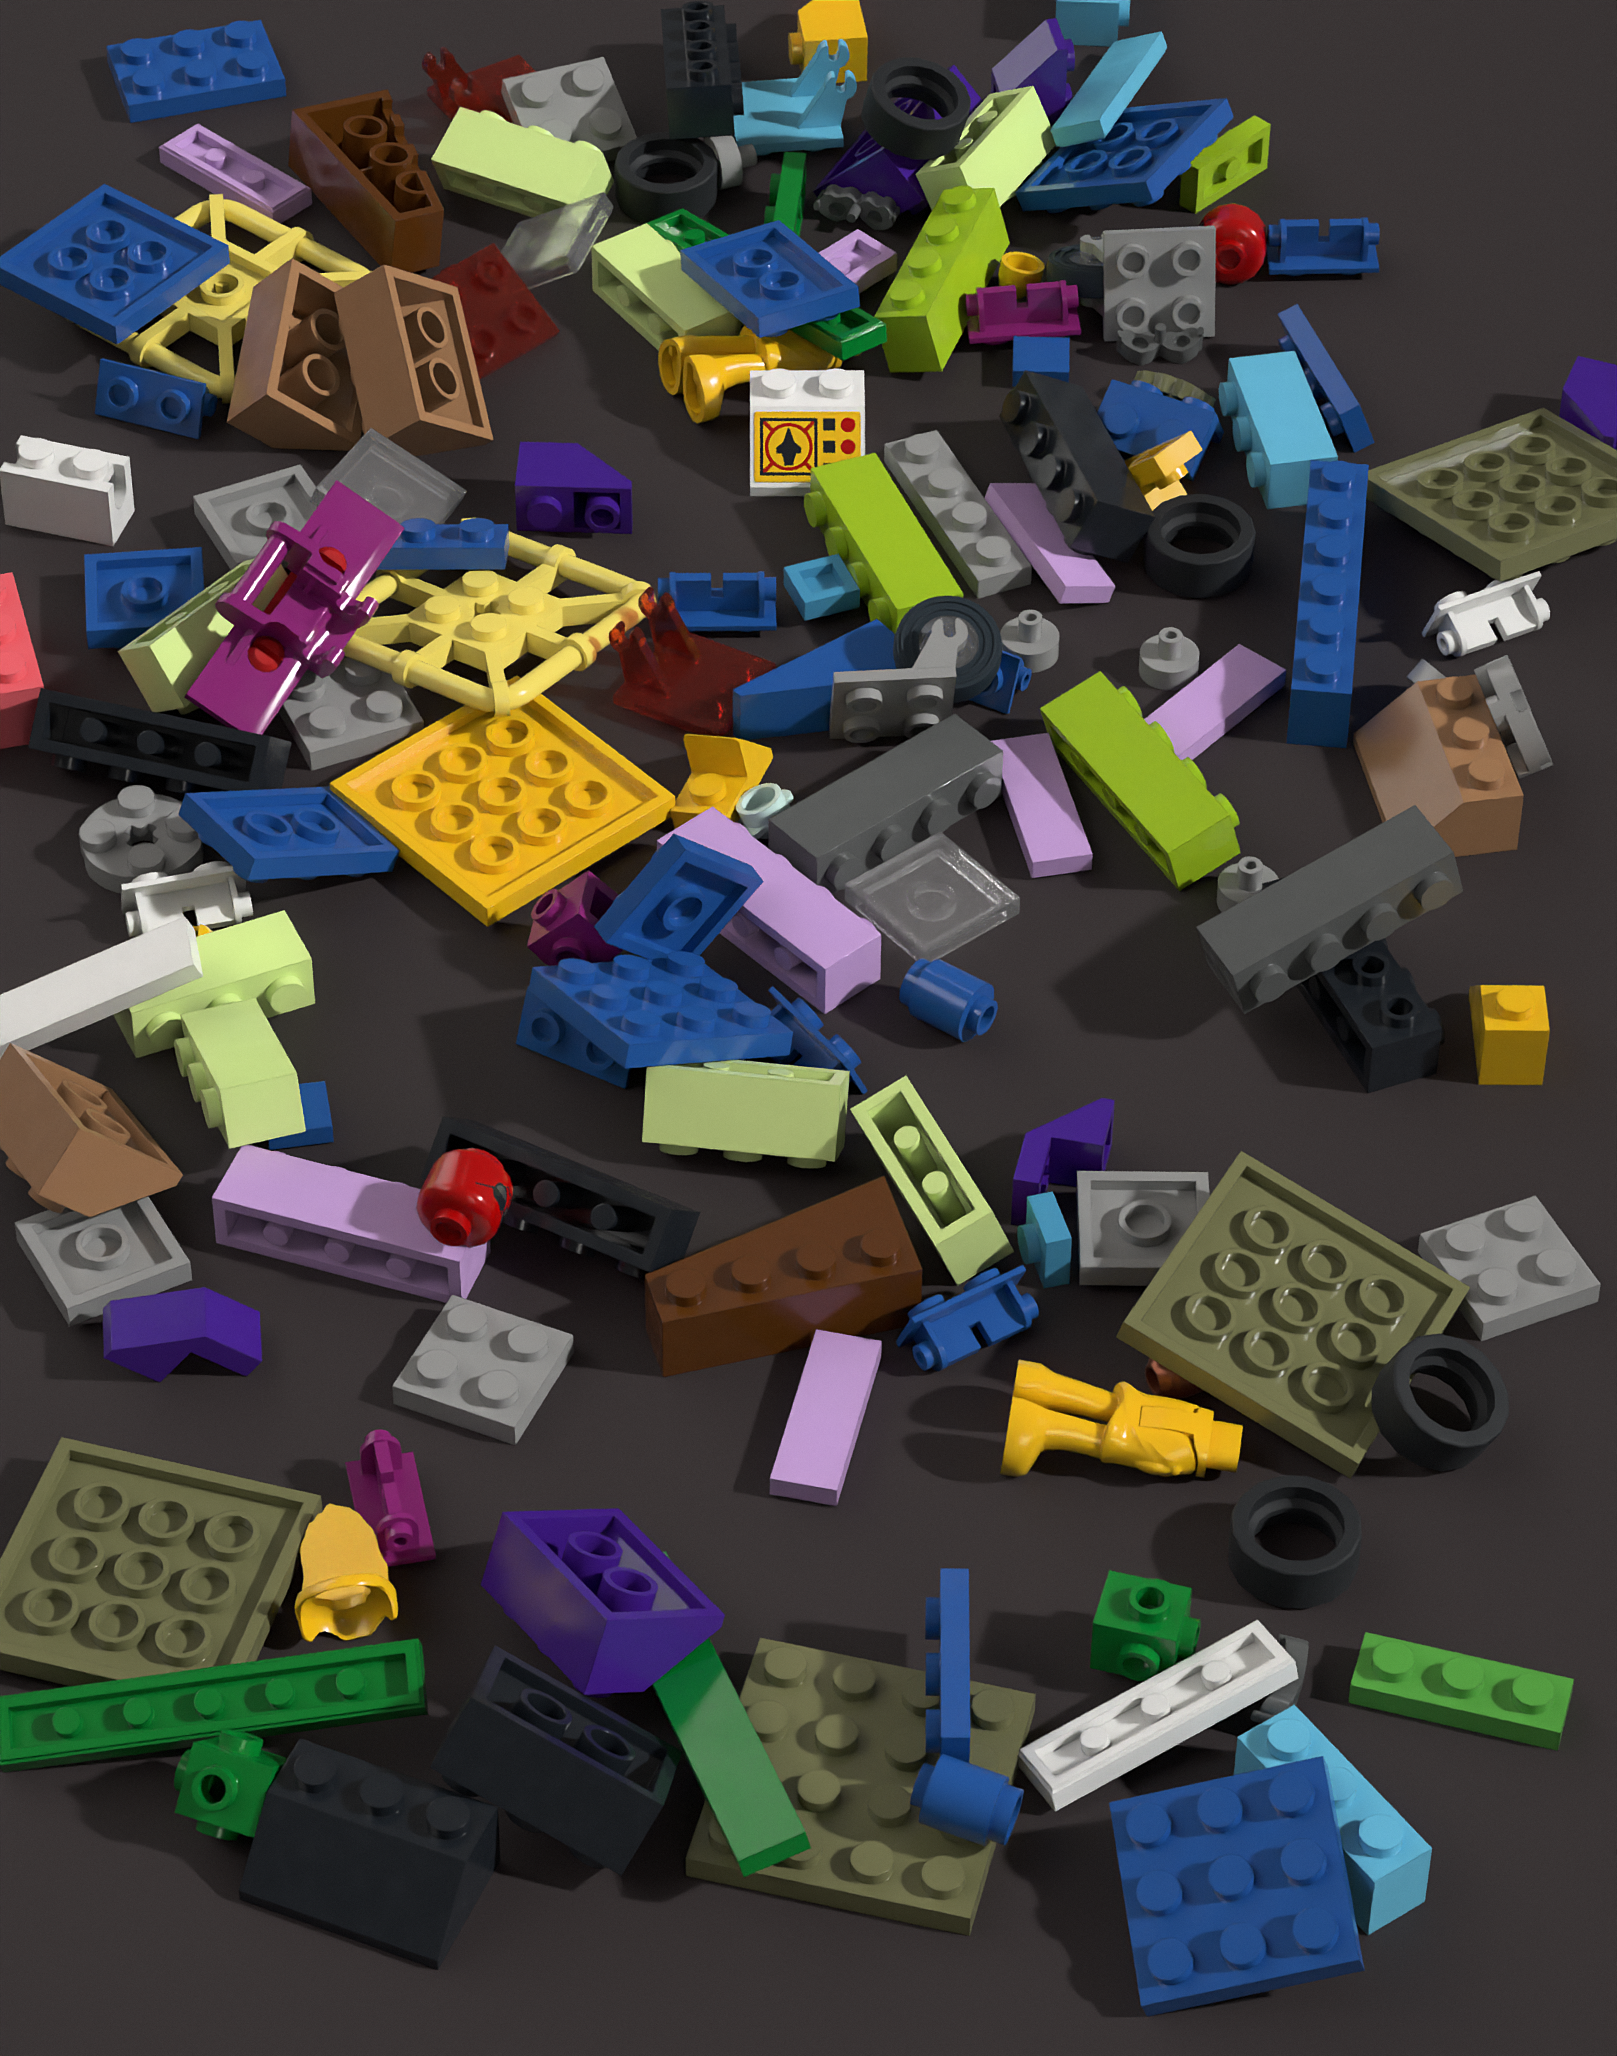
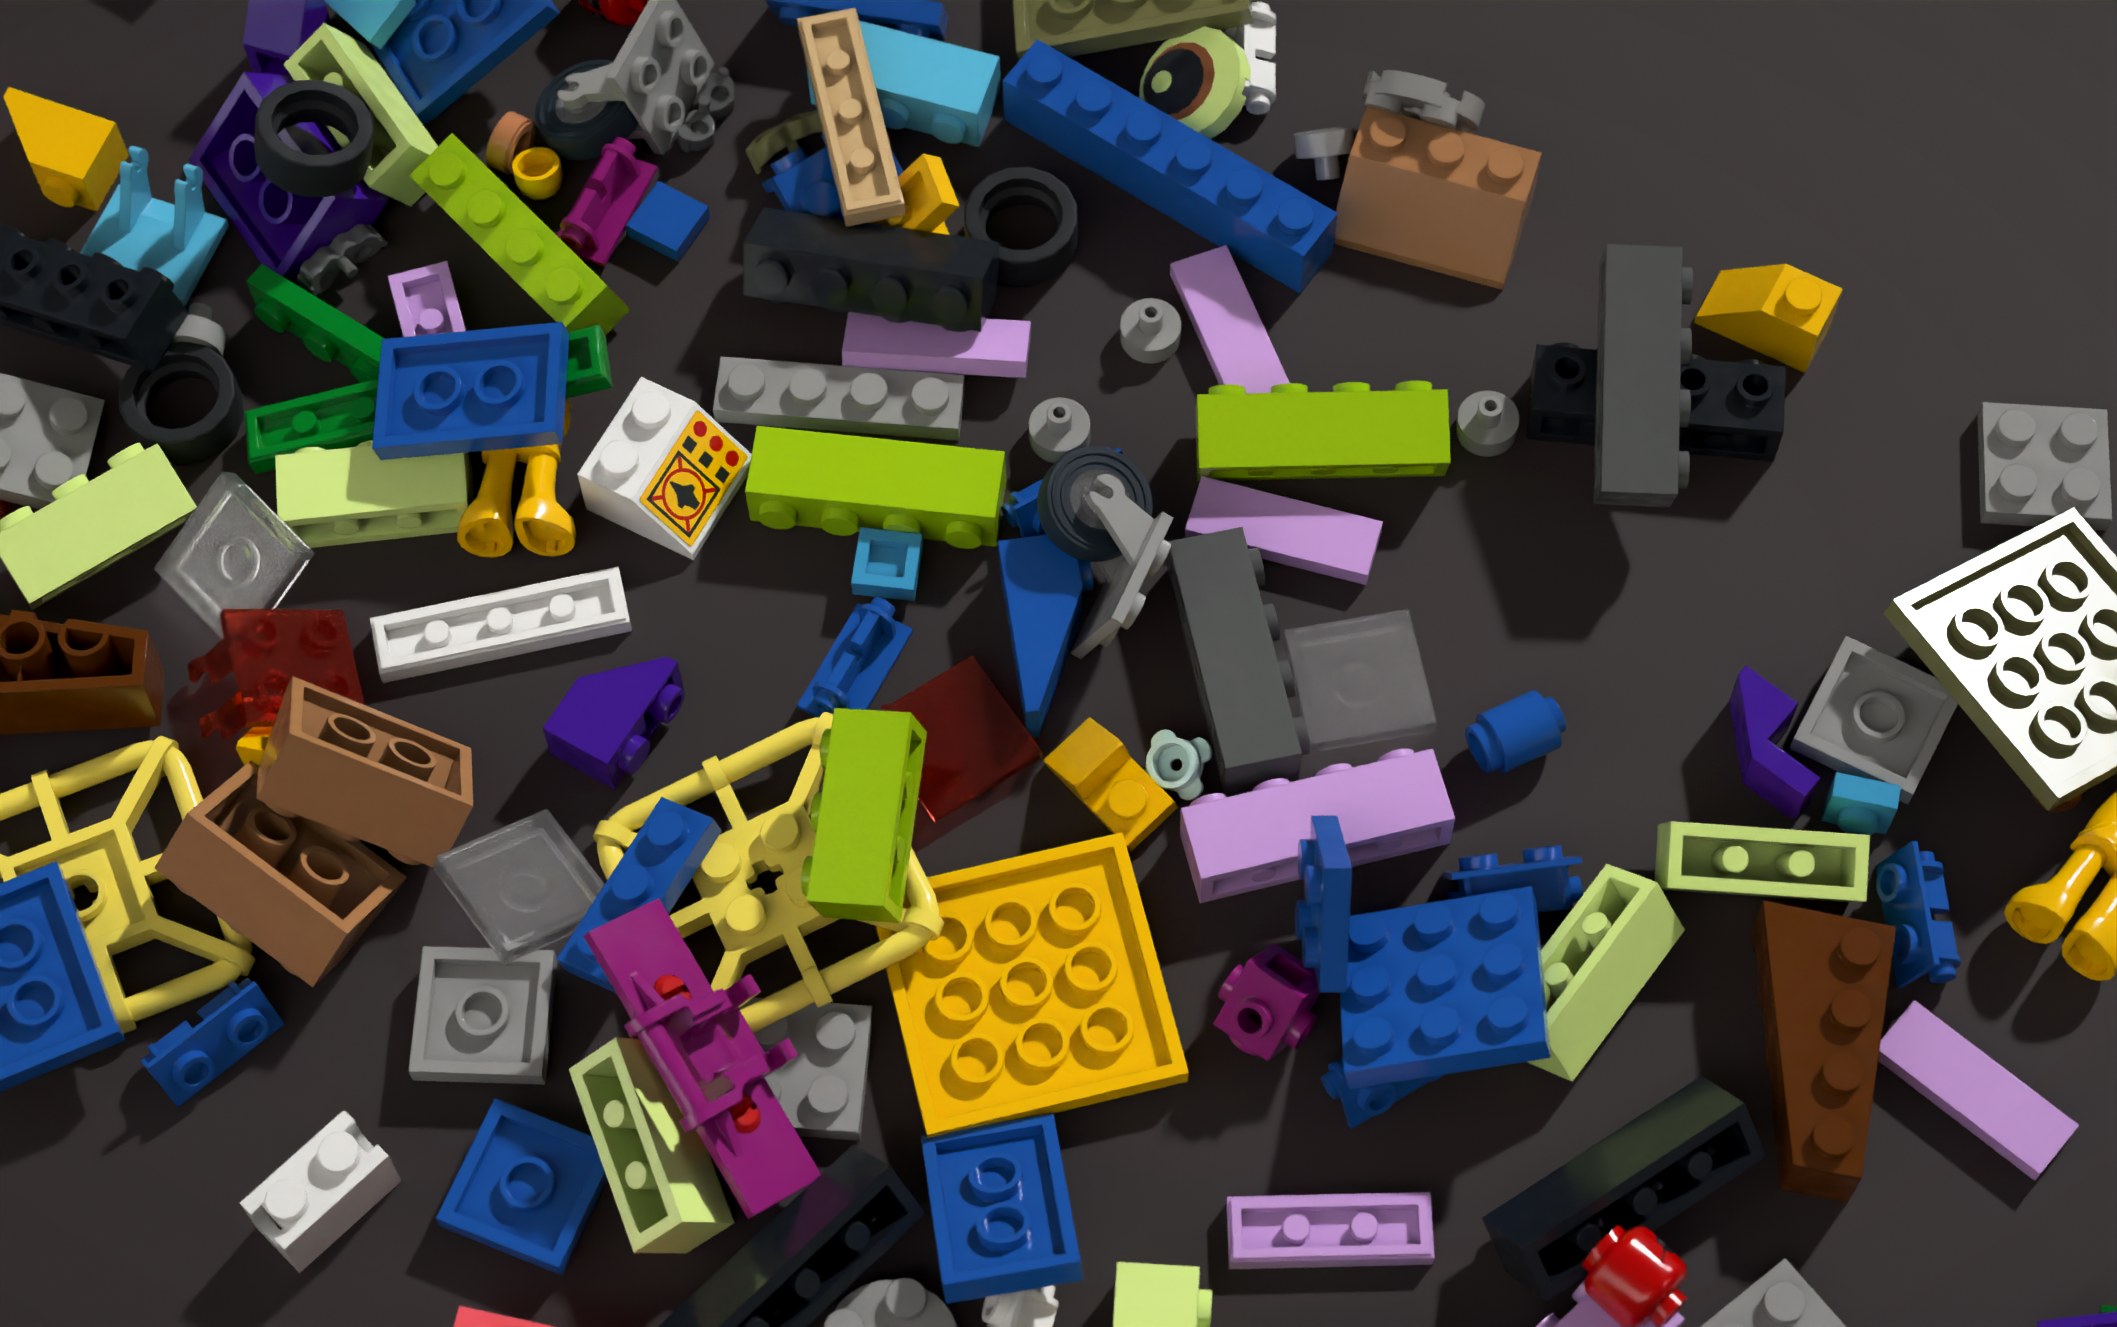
camera: 60 degrees left, 20 degrees up
(412, 1055) = (1330, 1230): none -> lavender tile
(556, 607) = (864, 815): none -> lime brick
(610, 414) = (500, 624): none -> white tile
(1034, 238) = (509, 138): none -> nougat tile
(1199, 390) = (851, 117): none -> tan tile
(1408, 587) = (1198, 80): none -> tile

